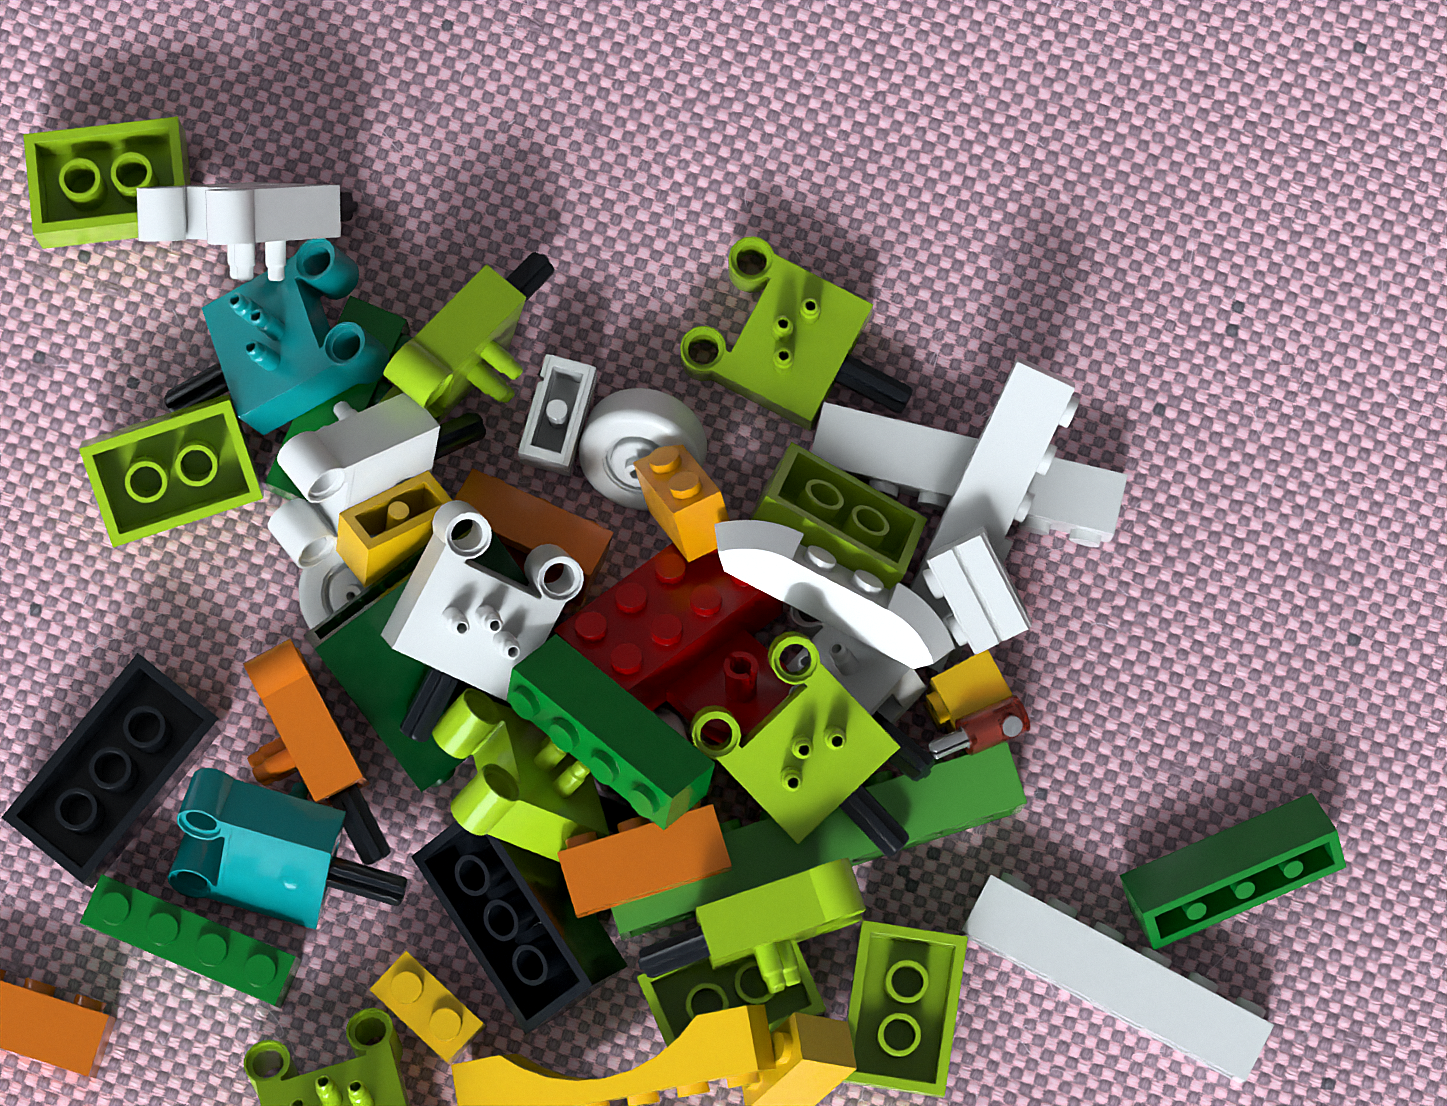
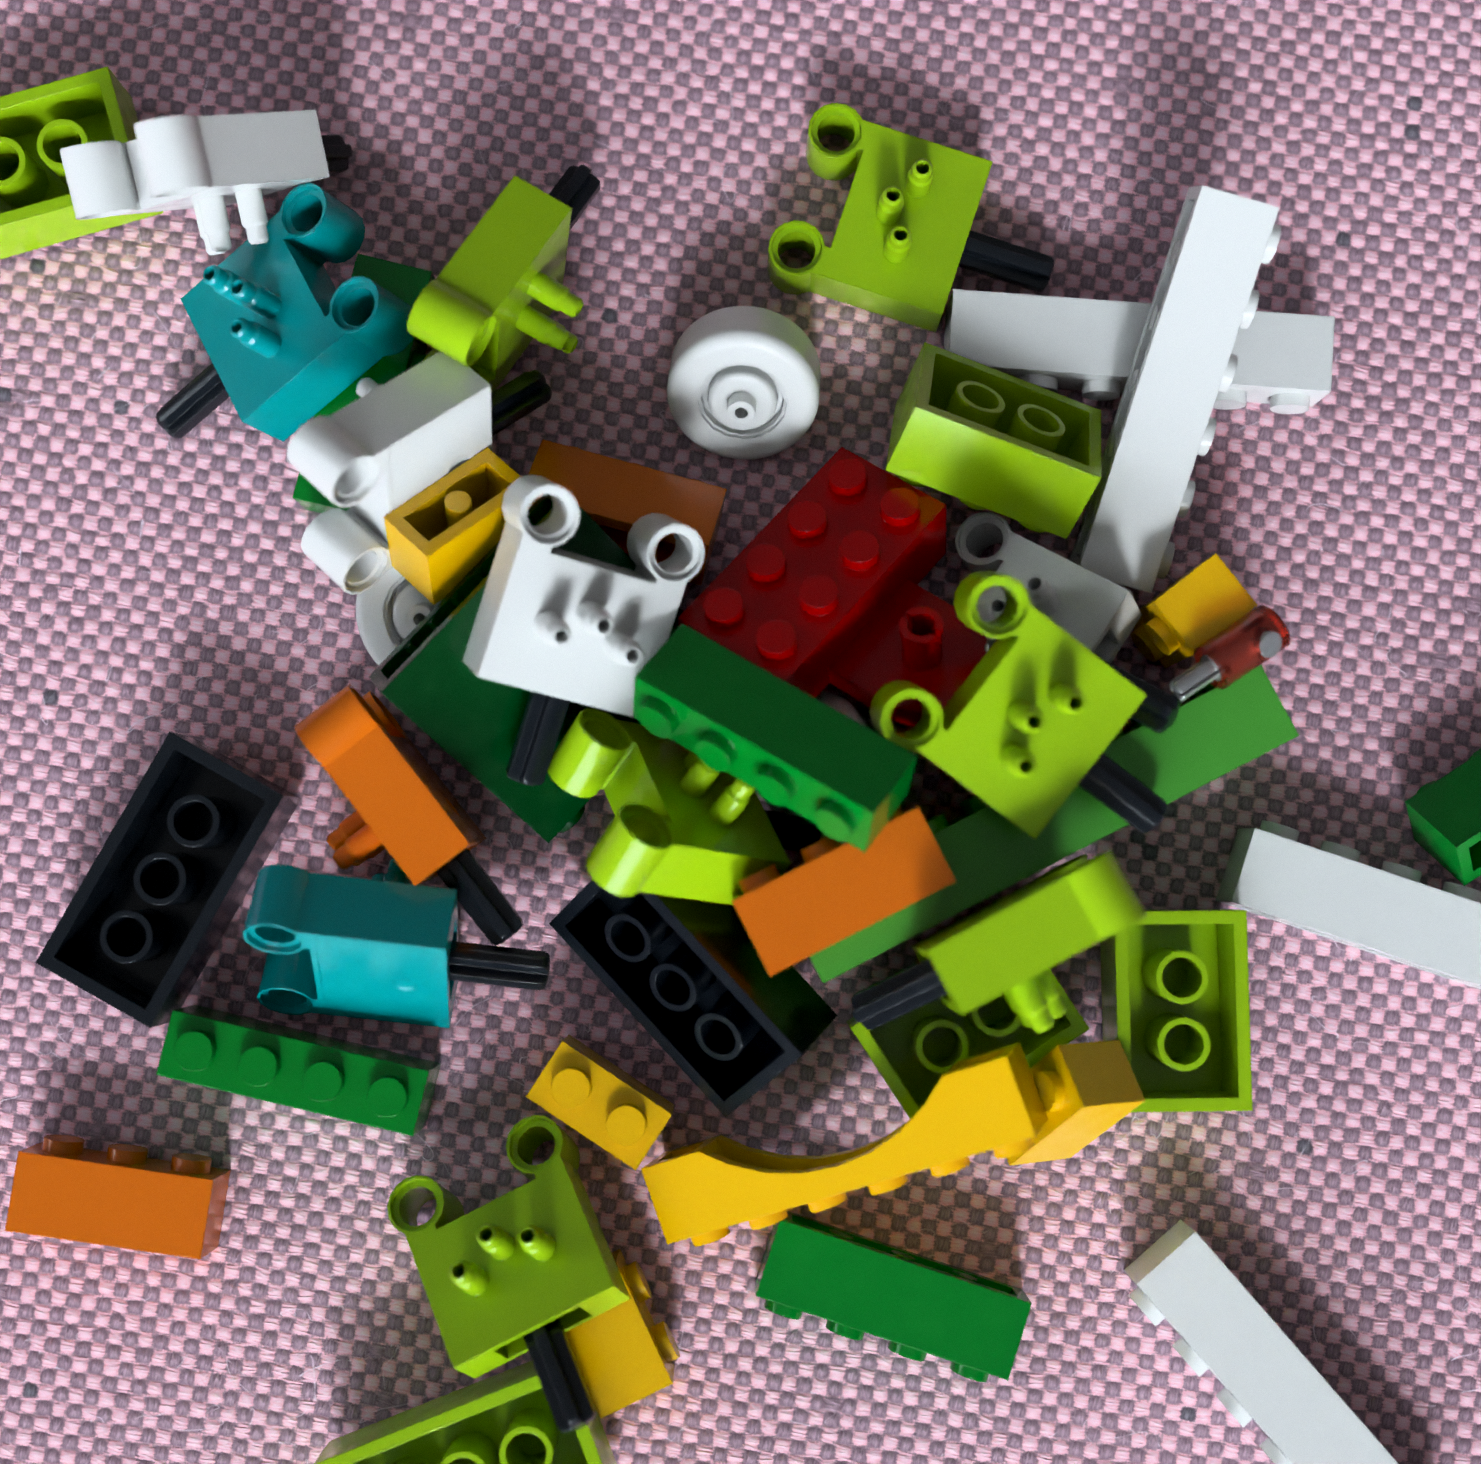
camera: 10 degrees left, 5 degrees up
(171, 470) = (175, 502): lime brick -> none
(558, 415) = (634, 357): white brick -> none
(682, 499) = (810, 433): light orange brick -> none
(850, 601) = (987, 503): white brick -> none
(977, 591) = (1192, 484): white brick -> none

